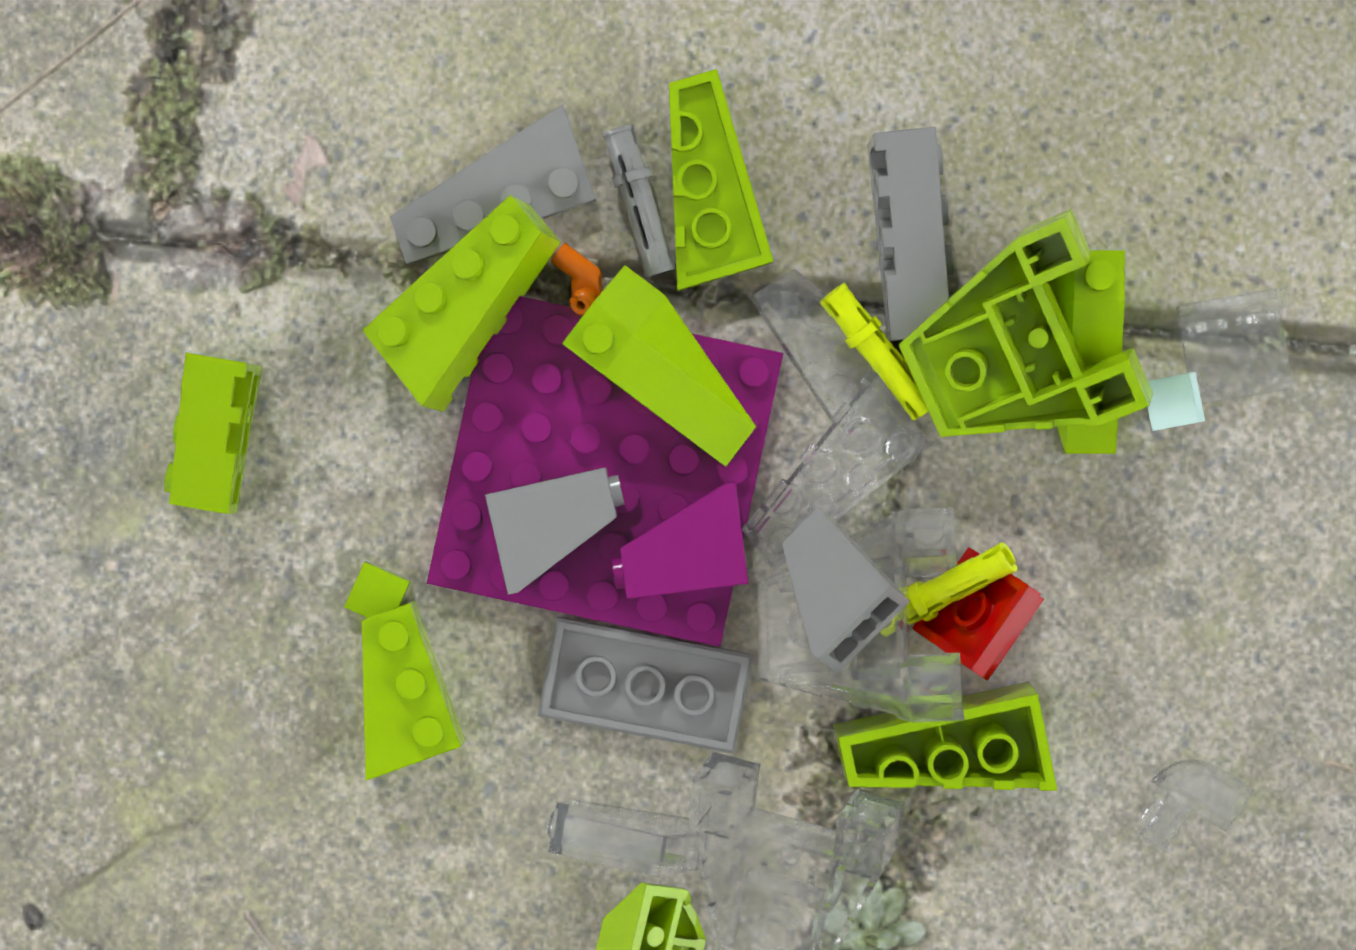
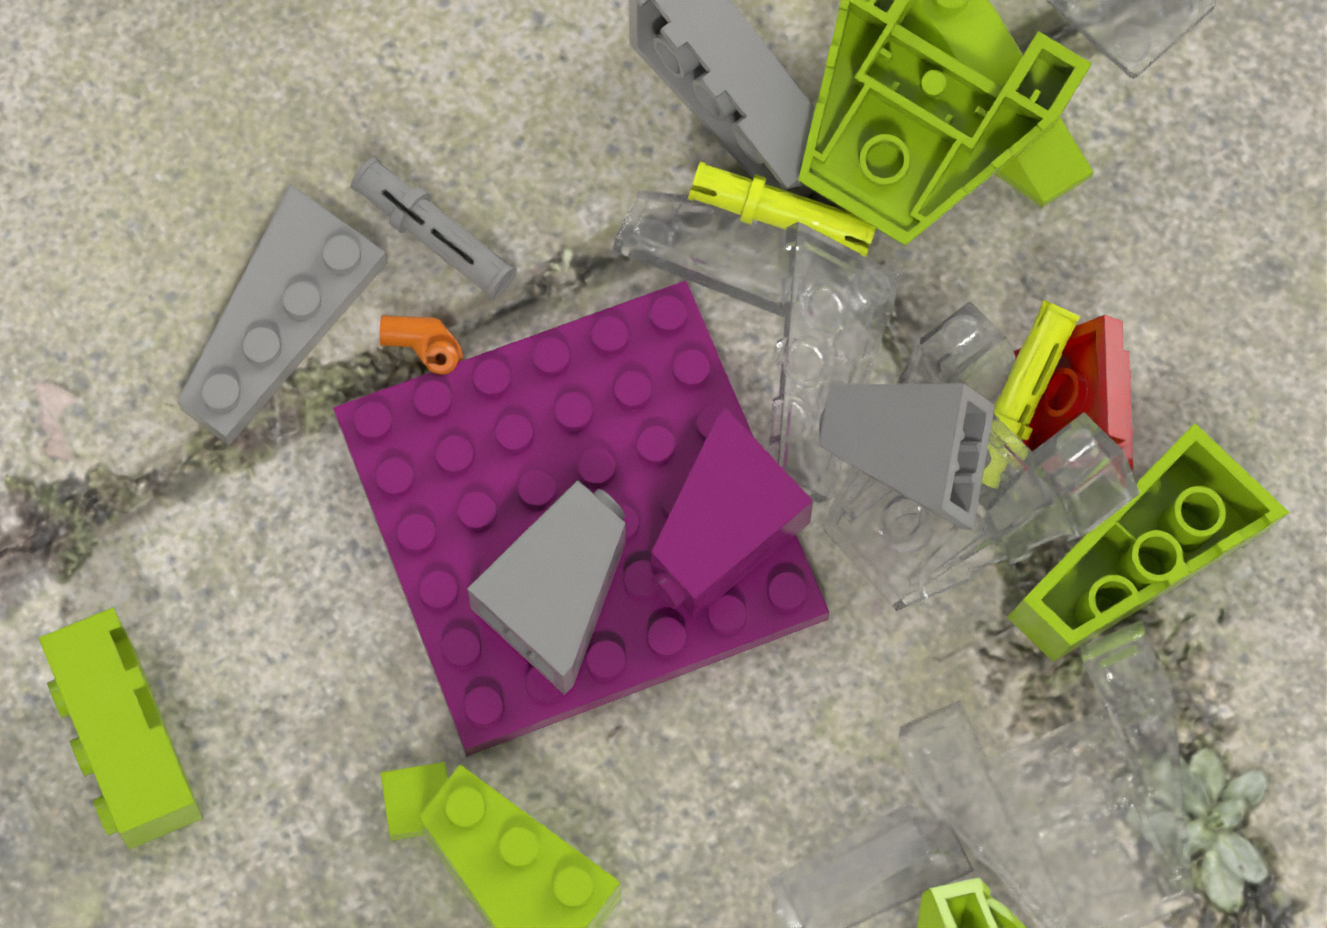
camera: 35 degrees left, 20 degrees down
(461, 301) = (310, 422): lime wedge -> none
(645, 685) = (776, 708): light grey tile -> none
(651, 355) = (552, 360): lime wedge -> none
(712, 194) = (508, 178): lime wing -> none
(1175, 402) = (1114, 84): light aqua tile -> none

